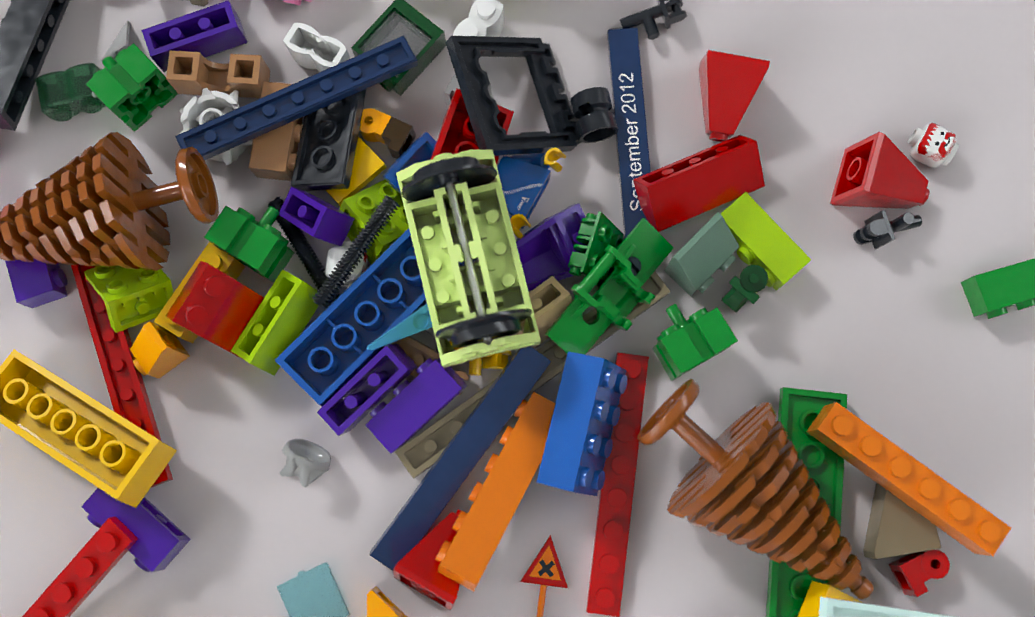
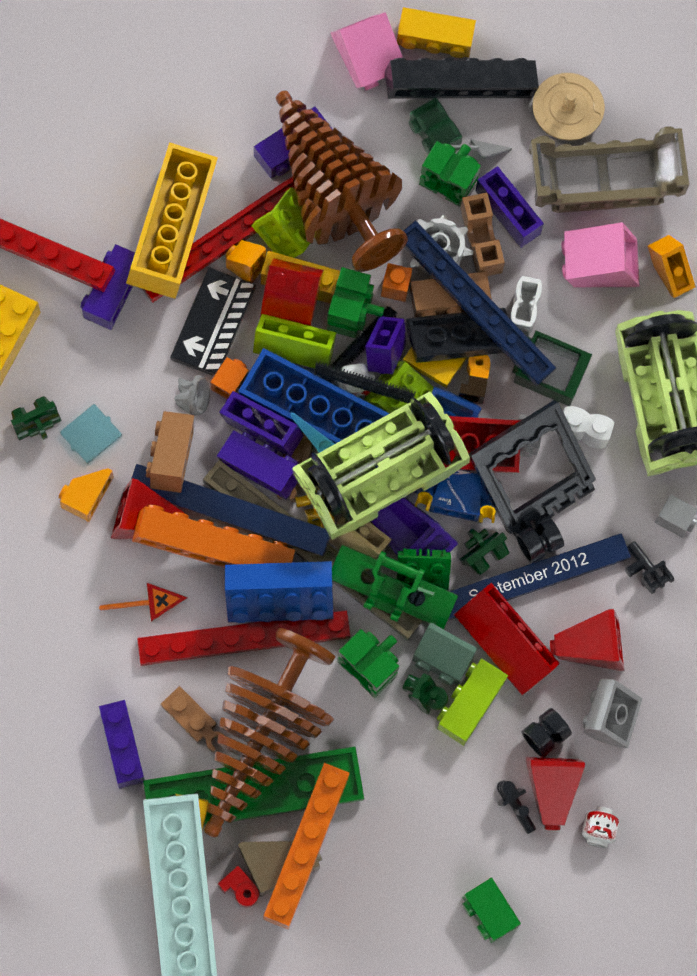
camera: 65 degrees right, 5 degrees down
(221, 412) = (213, 322): none -> black tile
(243, 185) = (396, 282): none -> orange brick
(297, 411) = (229, 377): none -> orange brick
(369, 509) = (170, 451): none -> medium nougat brick
(584, 179) = (493, 544): none -> dark green hips
(698, 571) = (191, 717): none -> medium nougat plate
(811, 97) = (612, 713): none -> light grey brick
(816, 169) = (546, 732): none -> black wheel

